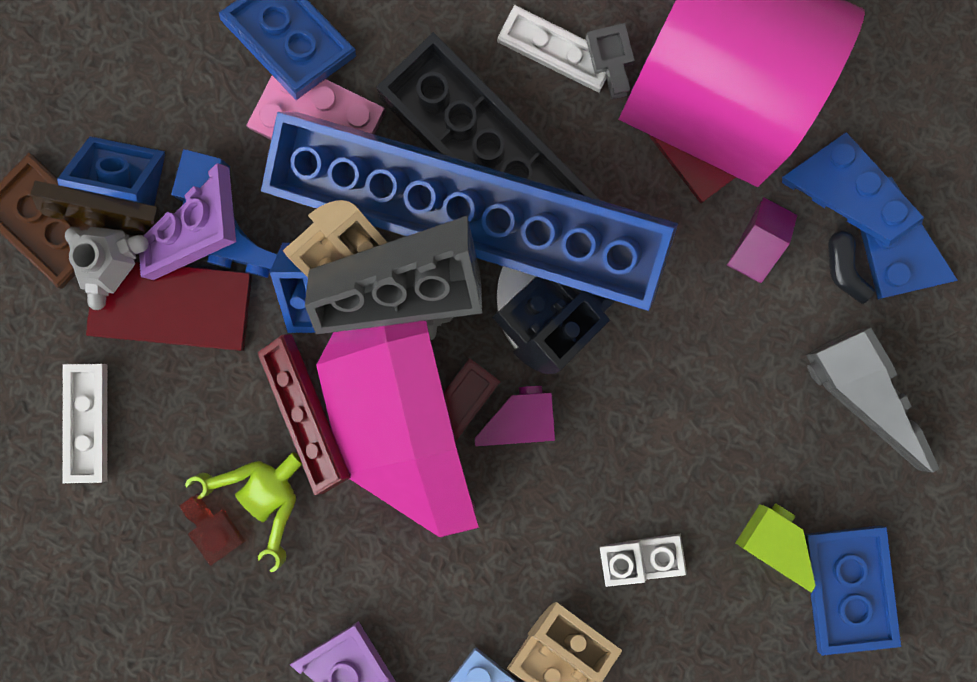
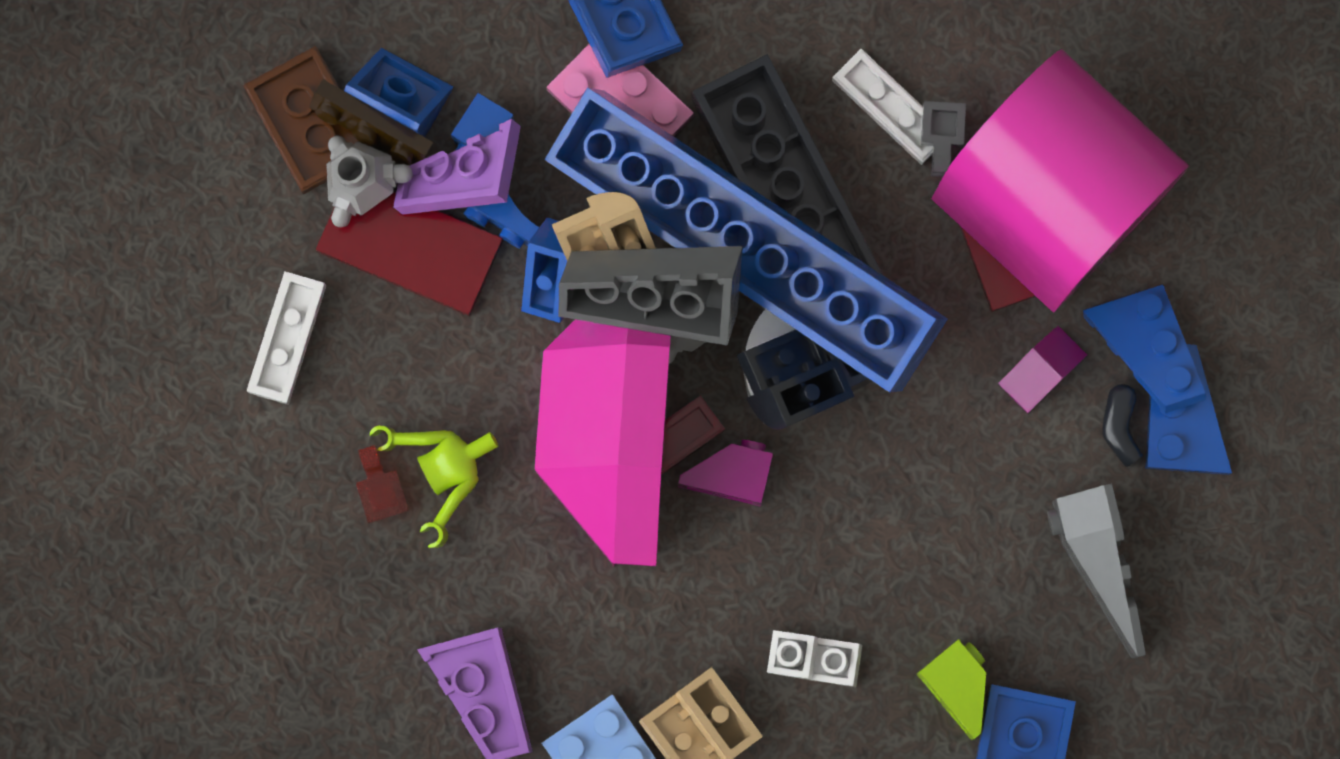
camera: 20 degrees right, 5 degrees down
(303, 414) = (513, 397): dark red tile -> none

